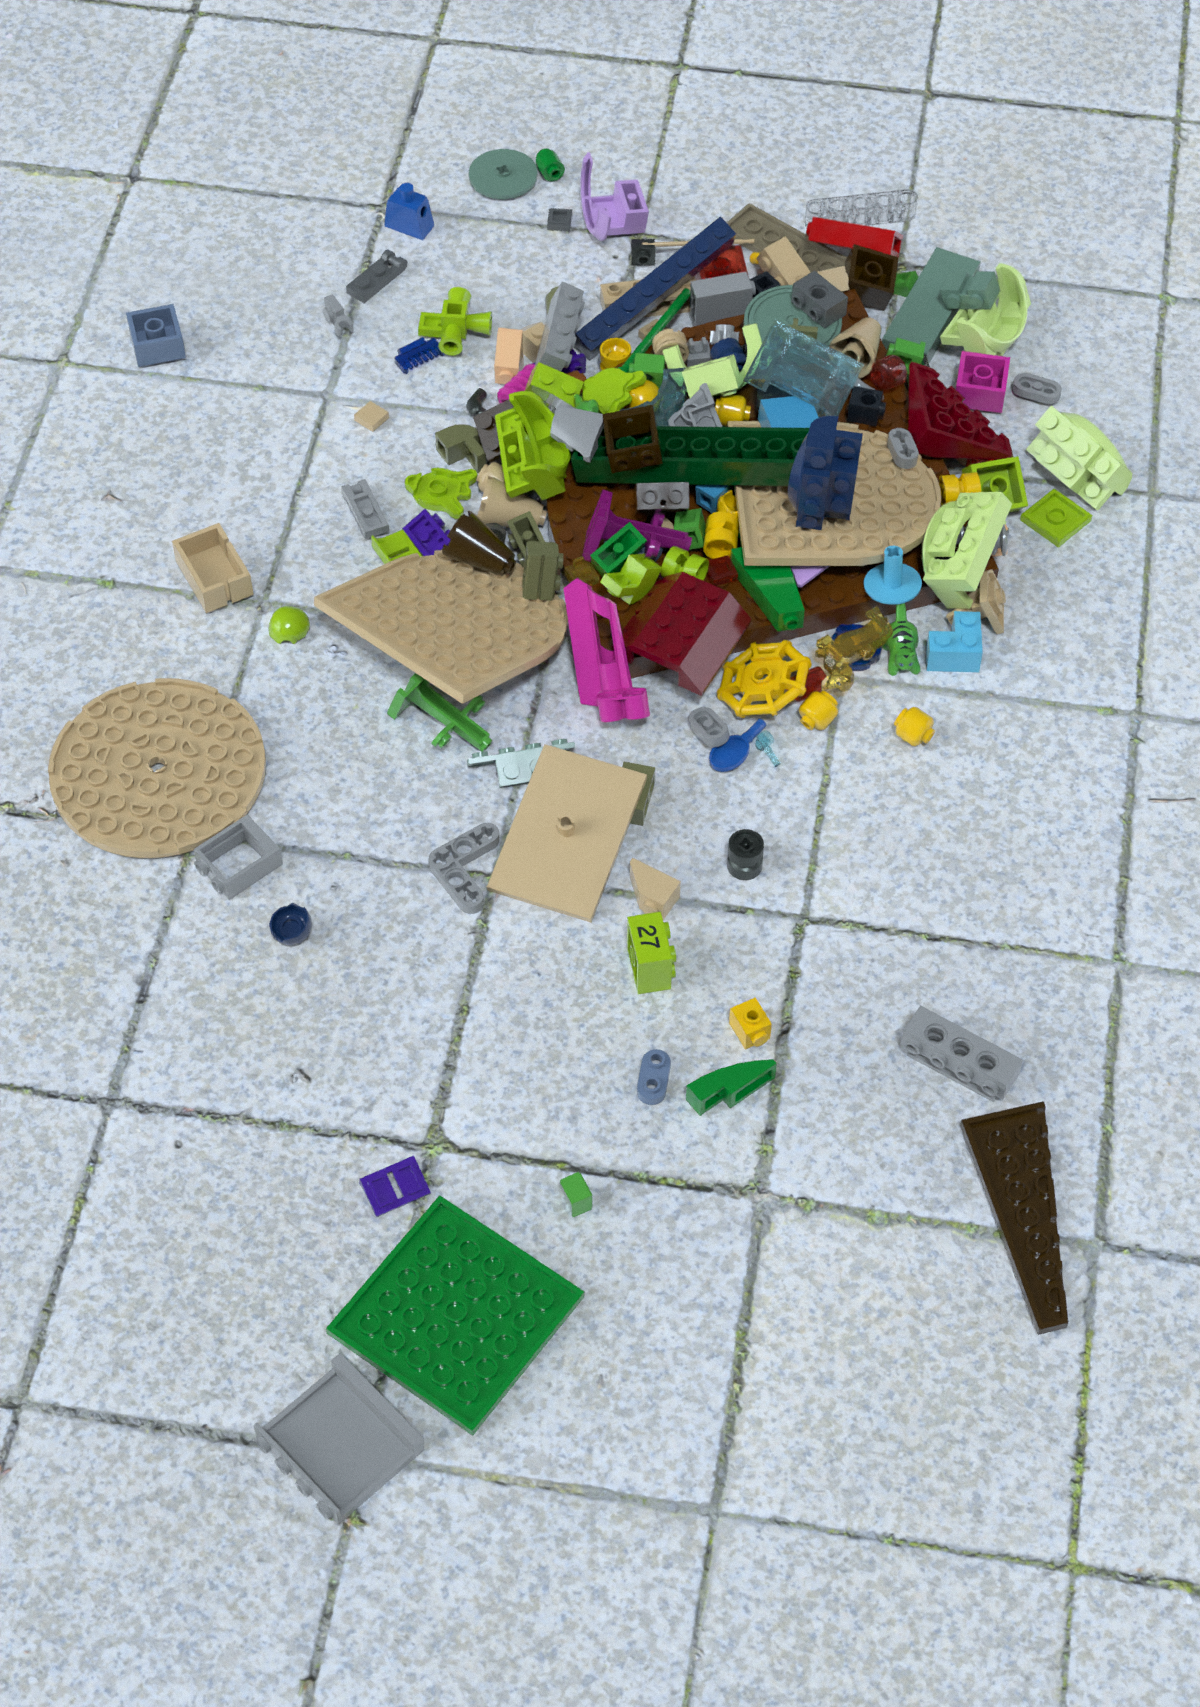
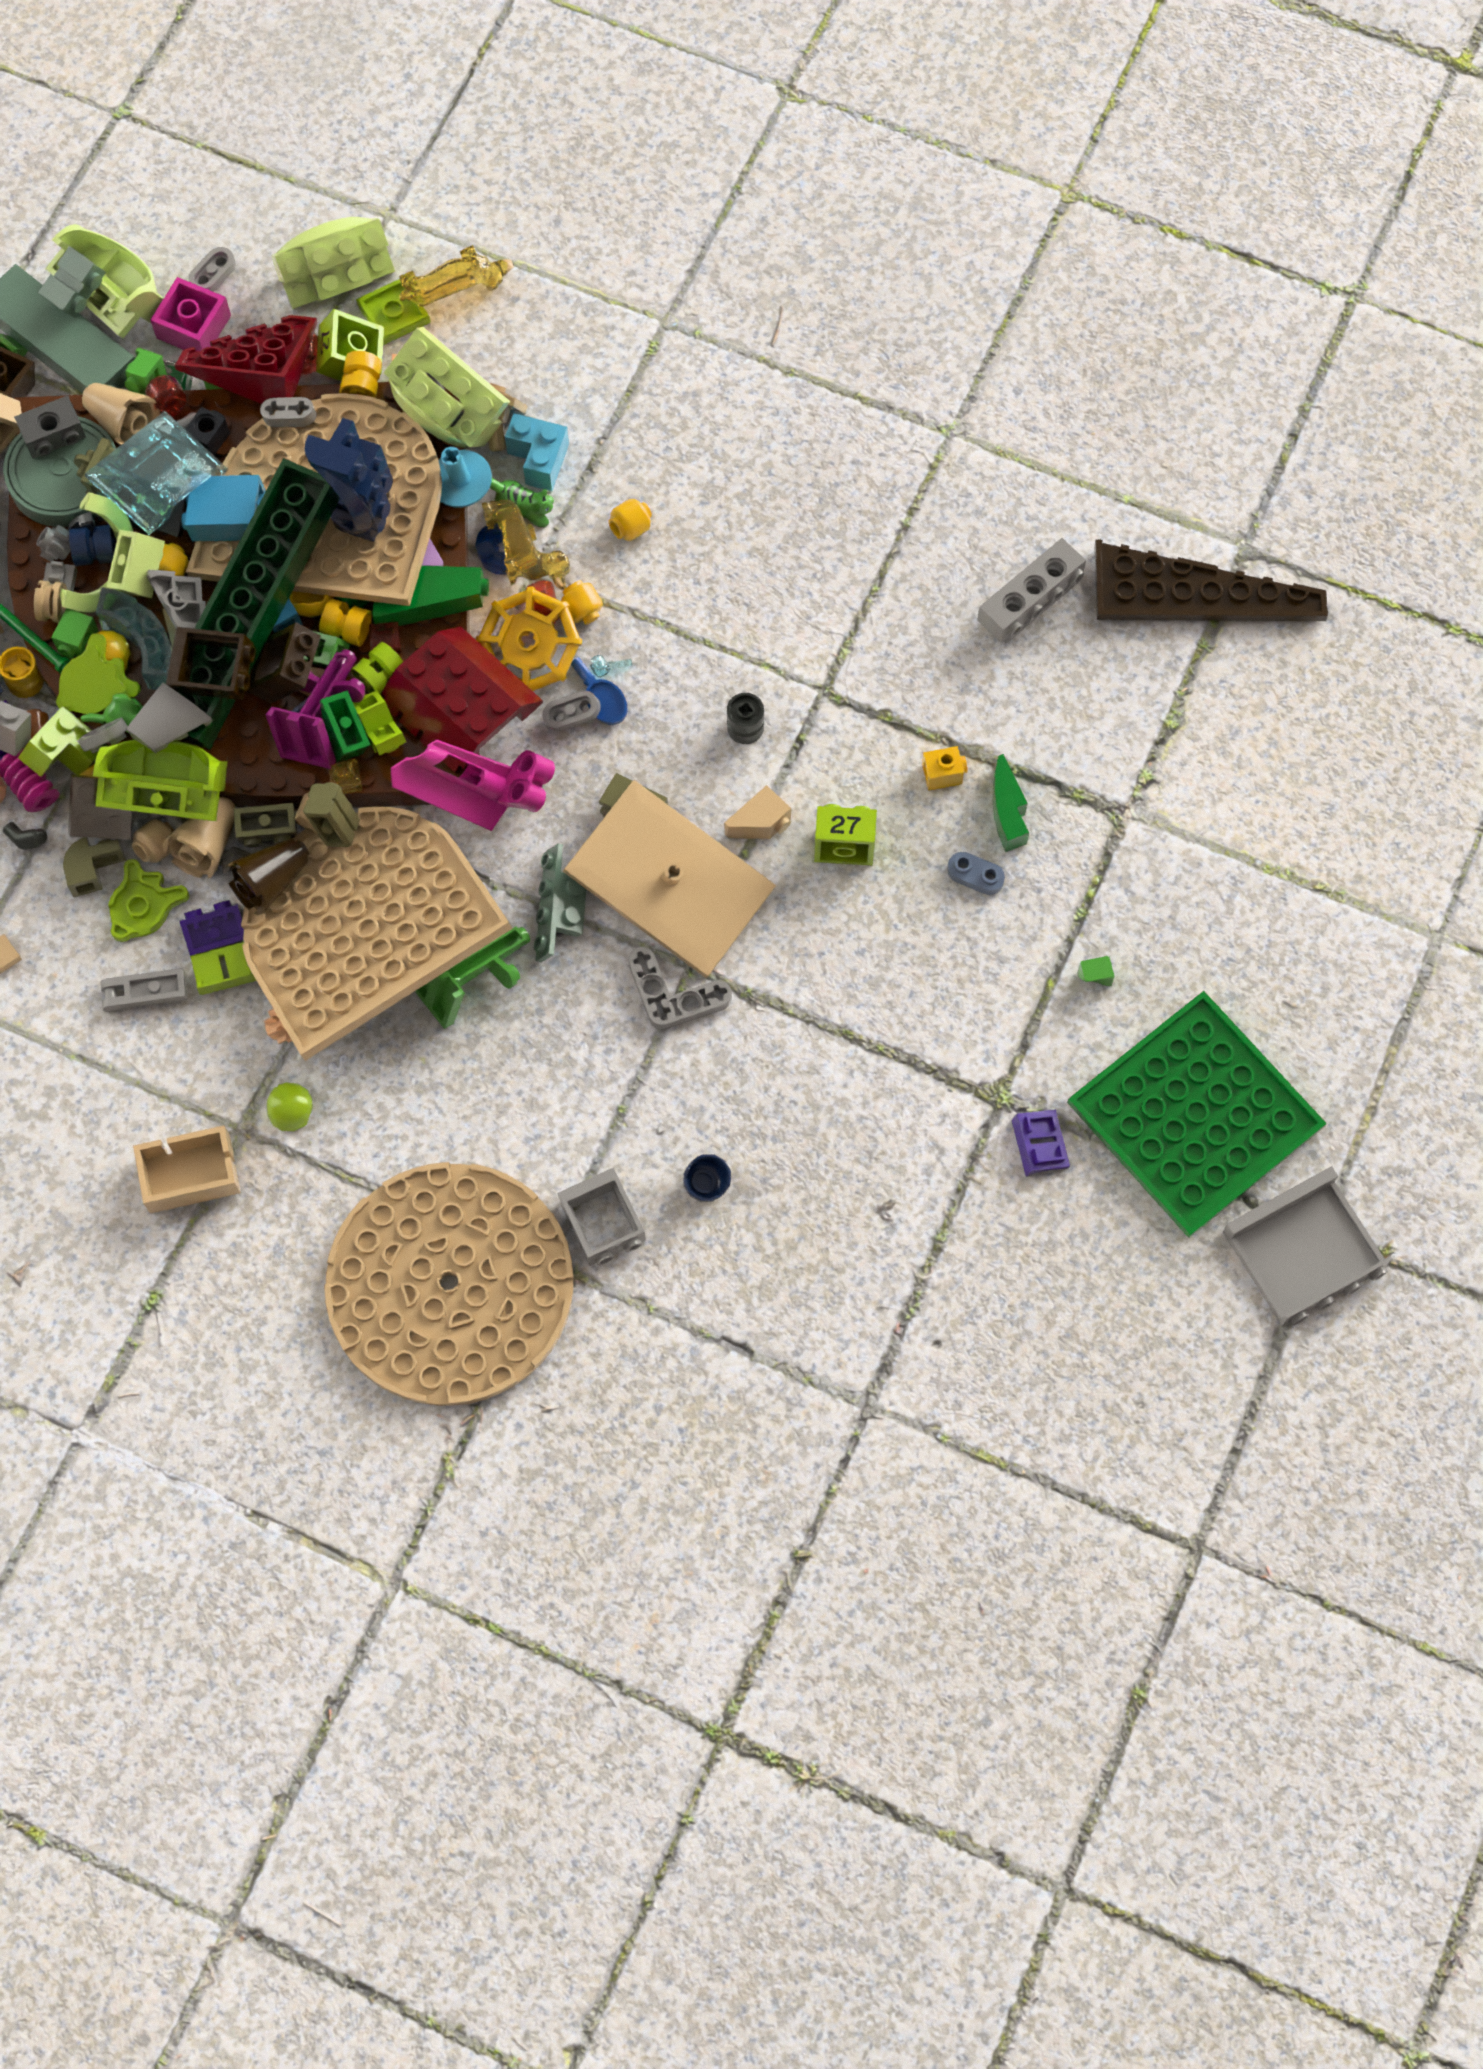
camera: 75 degrees left, 15 degrees up
(1101, 542) = (454, 277): none -> clear yellow animal

